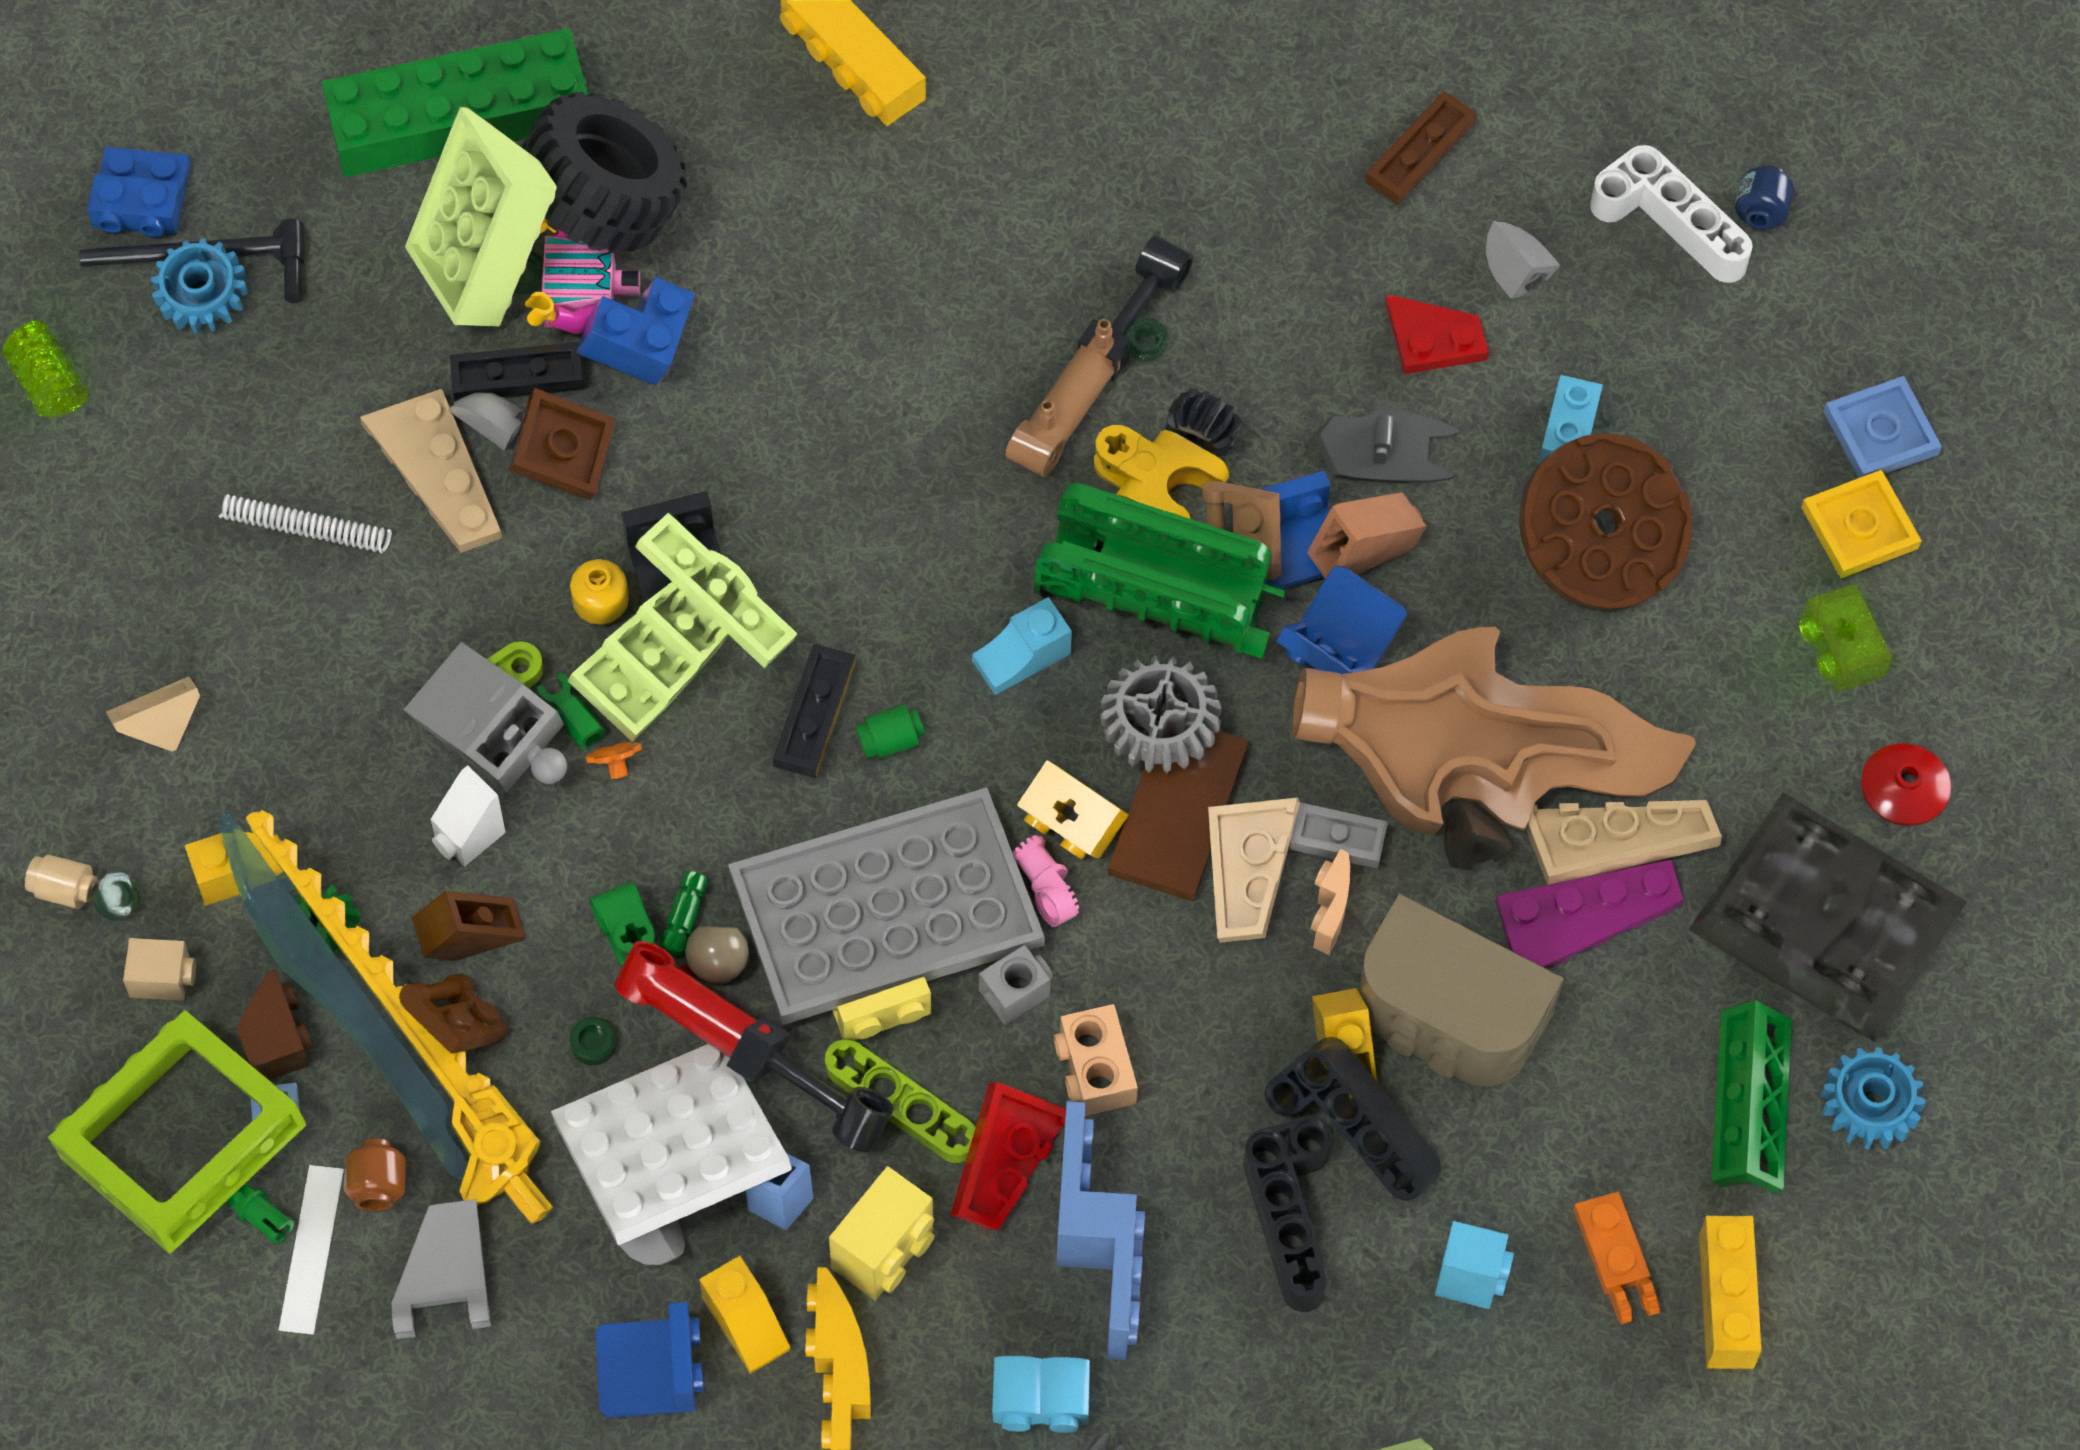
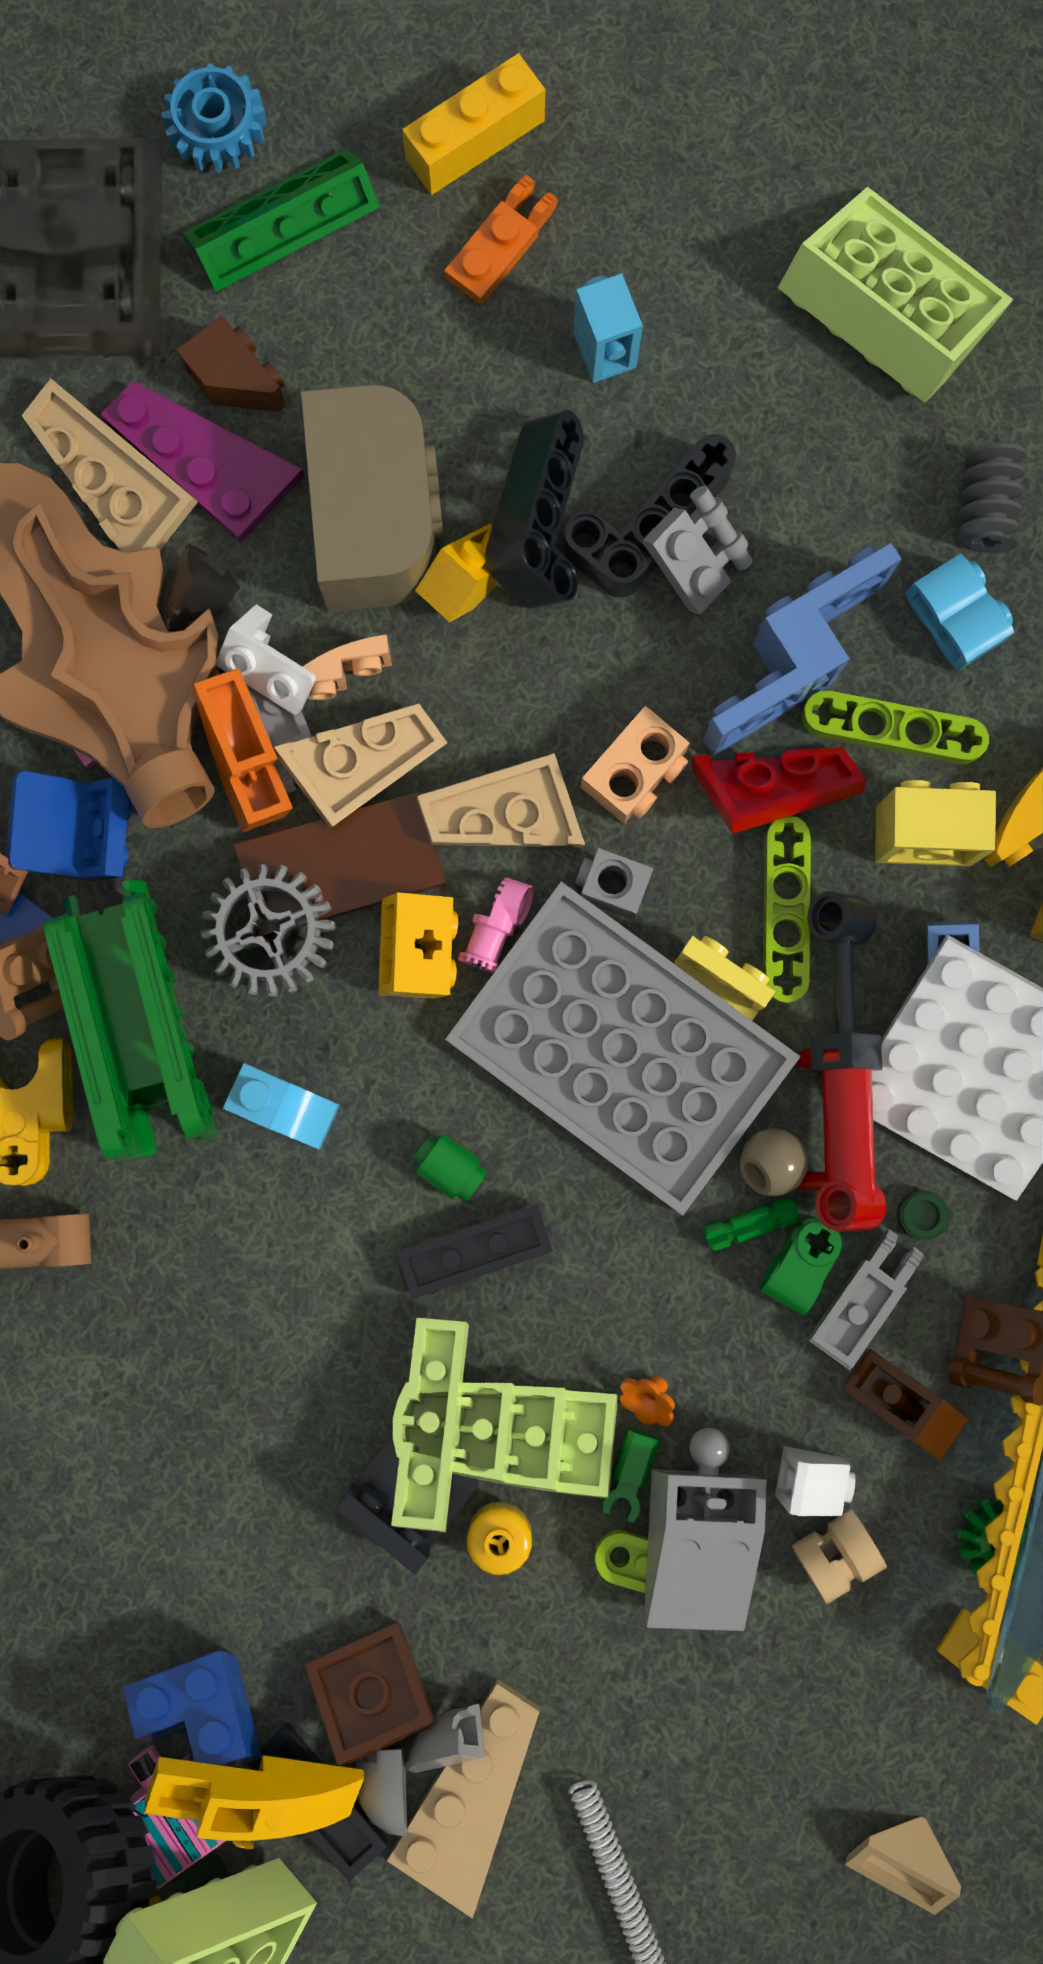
camera: 125 degrees left, 20 degrees up
(402, 803) = (852, 1542): none -> tan wheel
(490, 473) = (450, 1741): none -> light grey brick
(546, 329) = (253, 1805): none -> yellow slope
(563, 949) = (864, 1303): none -> light grey hinge
(989, 1286) = (895, 719): none -> lime beam
(1135, 945) = (504, 809): none -> tan wing
(1232, 1203) = (685, 556): none -> light grey plate
(1314, 780) = (241, 750): none -> orange slope
(1383, 824) = (263, 666): none -> white bracket
(1641, 973) = (227, 370): none -> reddish brown slope

